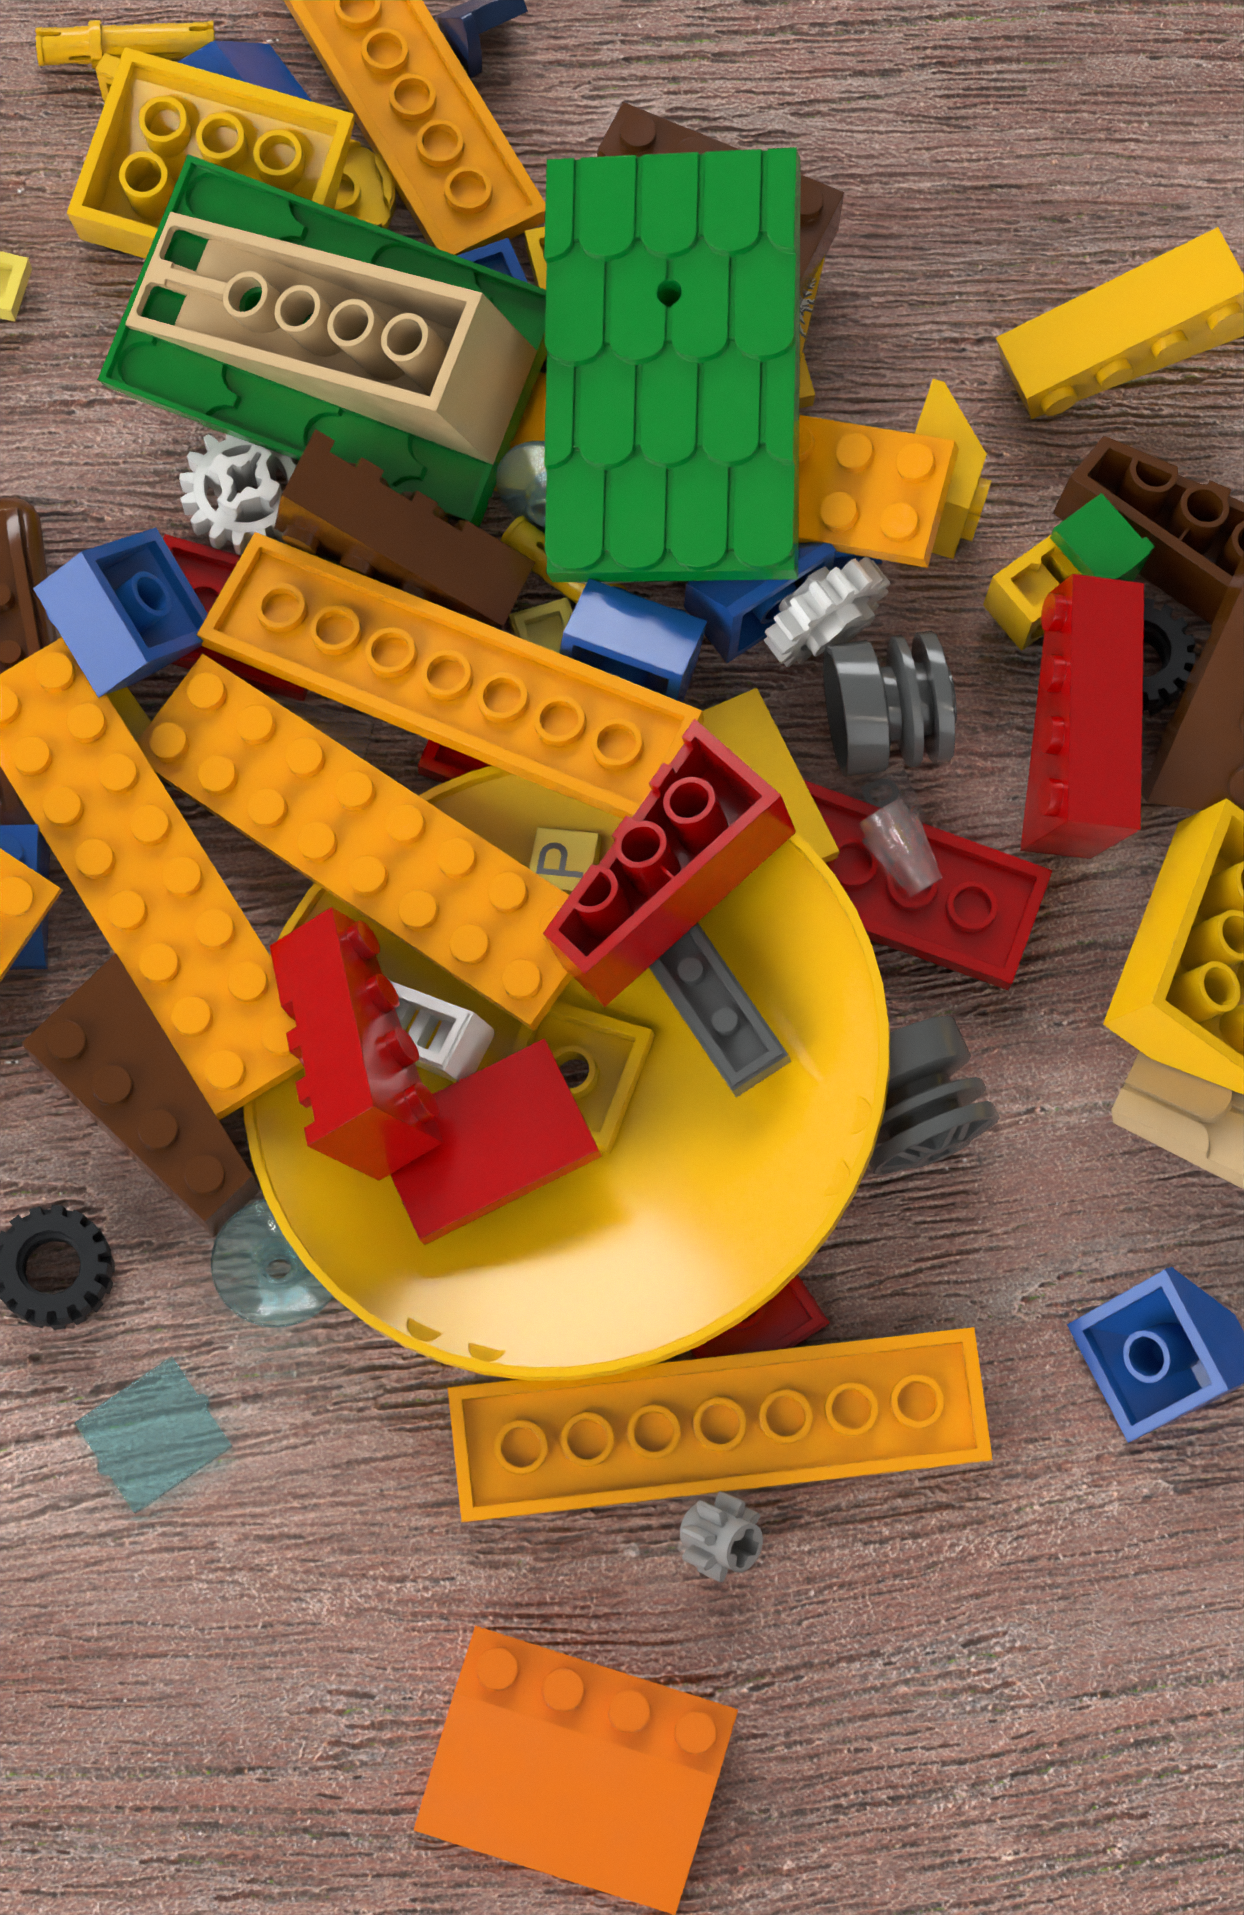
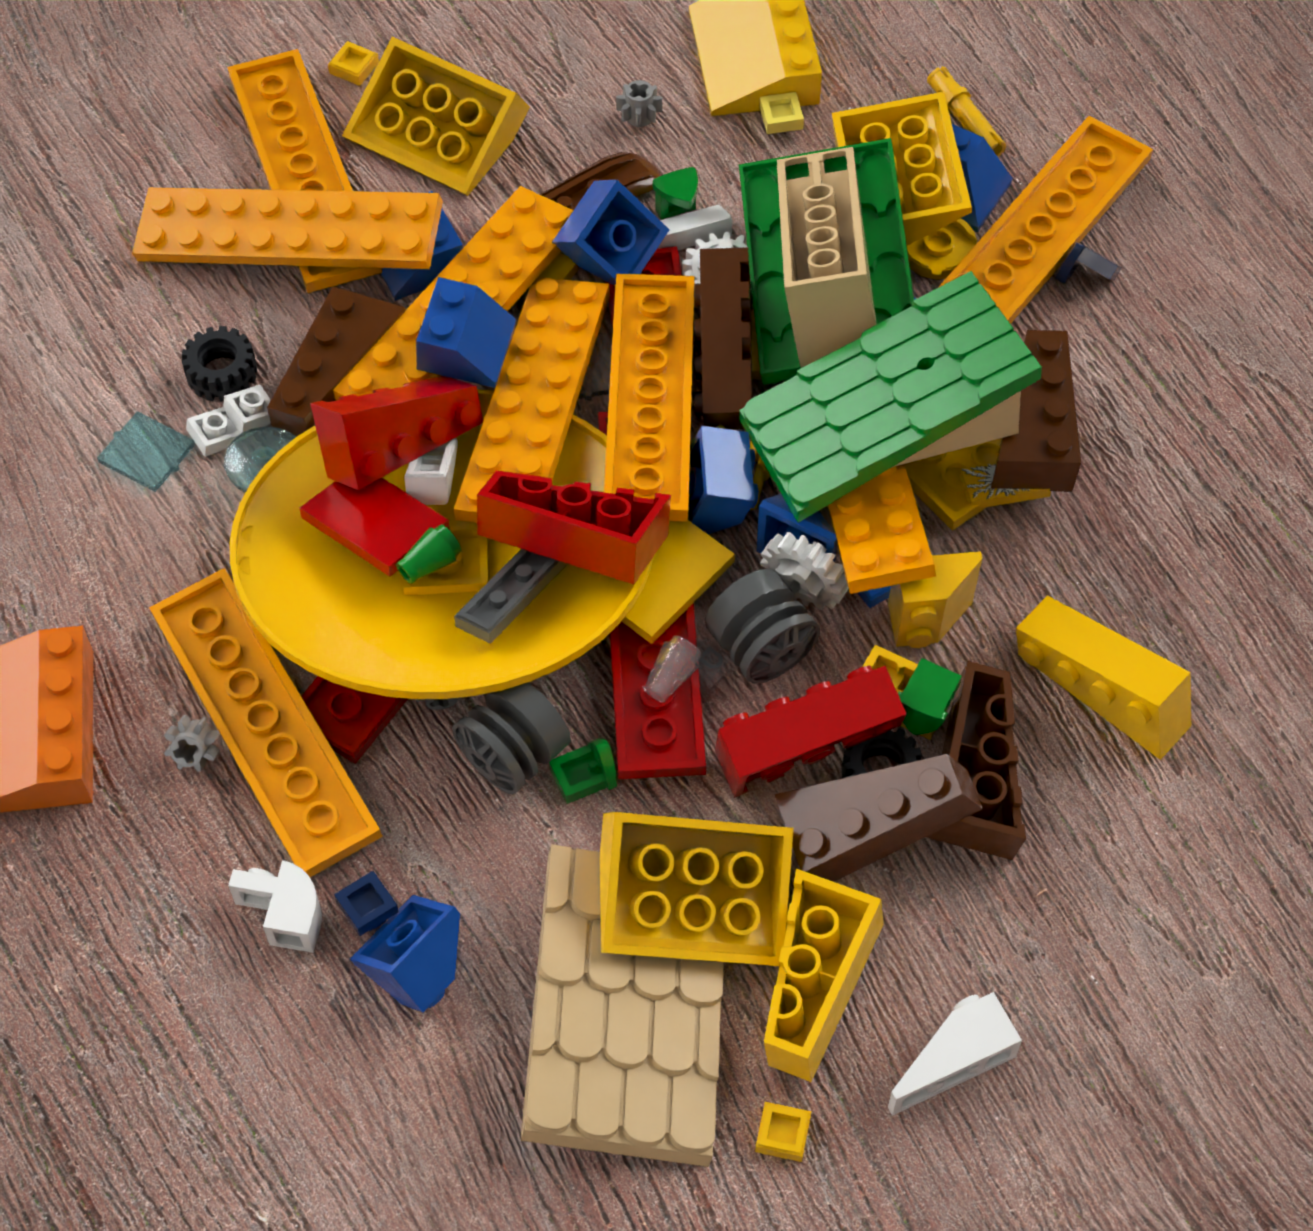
camera: 70 degrees right, 15 degrees down
(84, 484) = (675, 192): none -> green tile
(135, 488) = (696, 225): none -> white slope
(164, 1286) = (240, 413): none -> white slope
(234, 888) = (464, 334): none -> blue slope
(600, 1085) = (431, 552): none -> green cone
(984, 1018) = (584, 770): none -> green tile
(1027, 1482) = (291, 903): none -> white brick
(1077, 1387) = (366, 903): none -> dark blue tile

